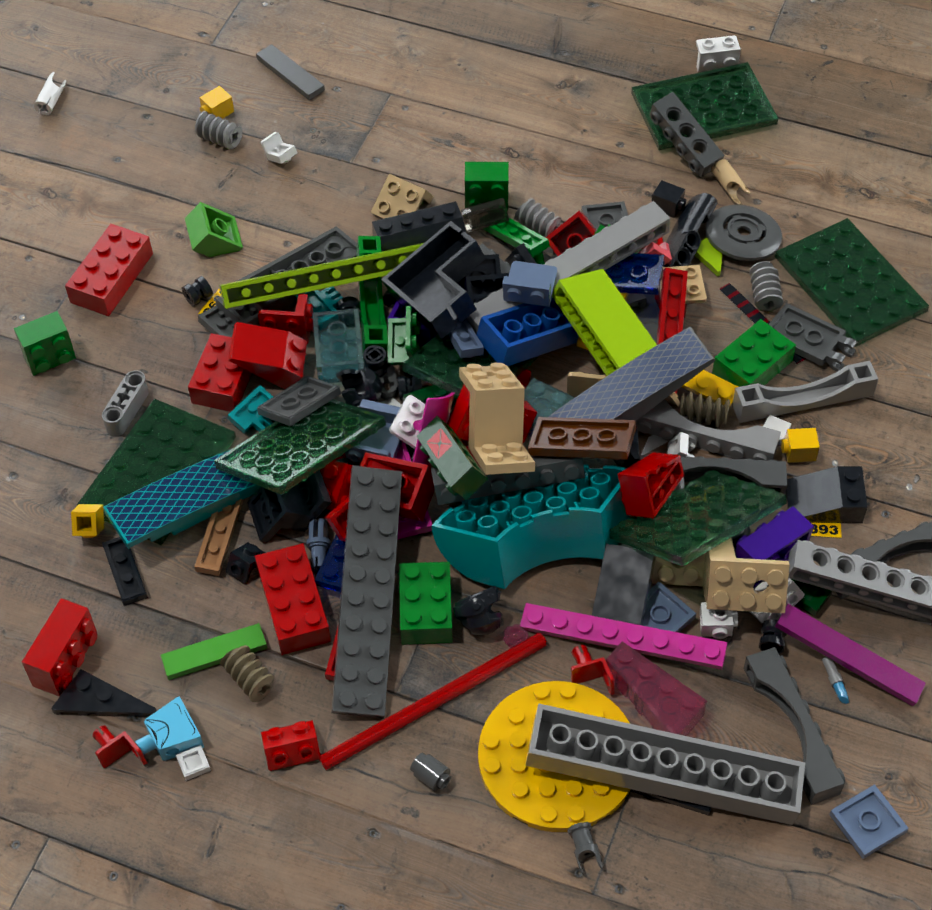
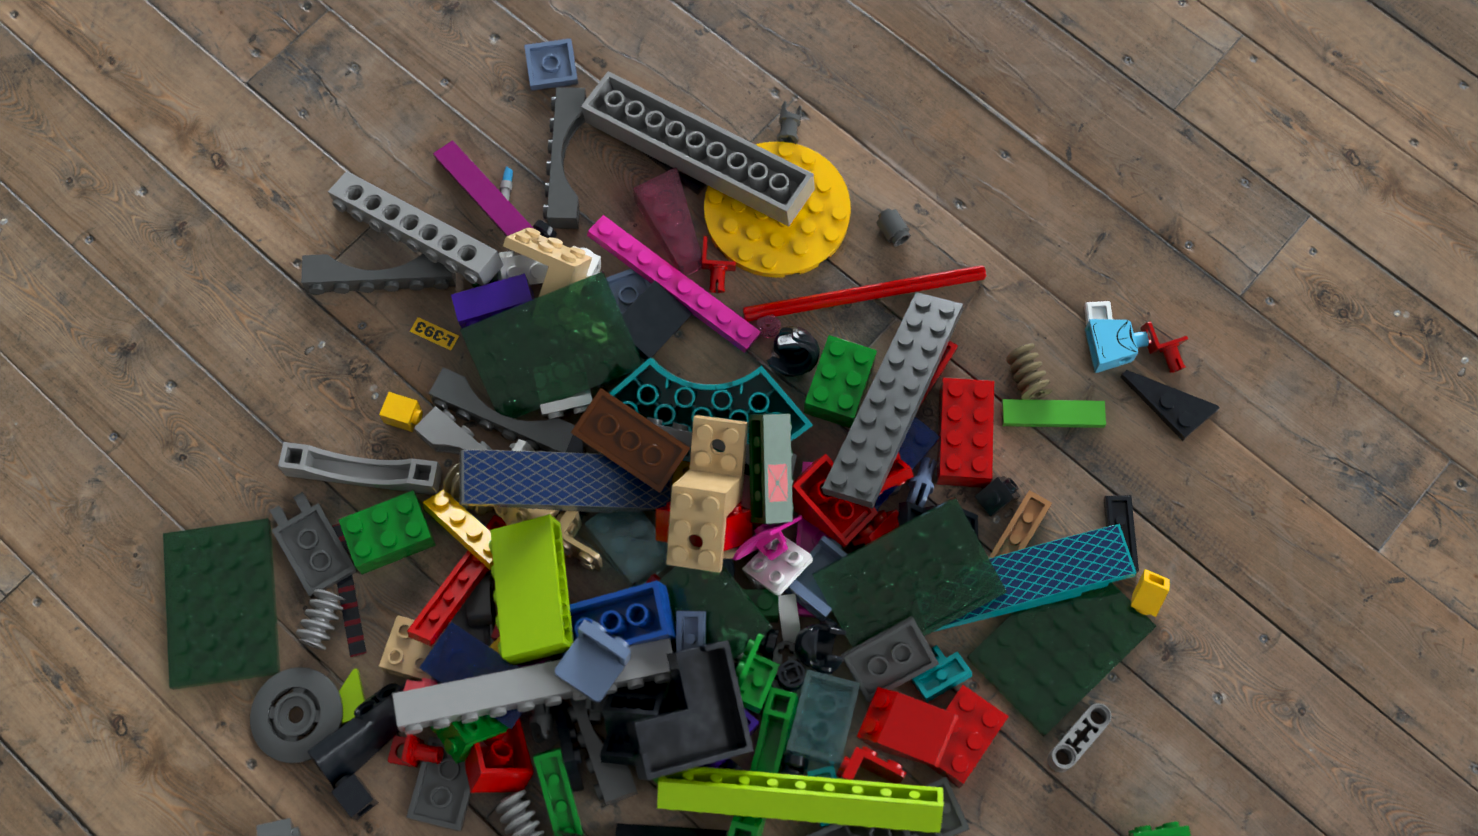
camera: 160 degrees left, 15 degrees up
(60, 647) = (1201, 451): red brick -> none
(290, 745) = (1008, 298): red bracket -> none
(650, 483) = (577, 393): red wedge -> none
(729, 179) = (266, 796): tan piece -> none
(777, 424) = (412, 447): white tile -> none
(829, 495) = (407, 352): black slope -> none

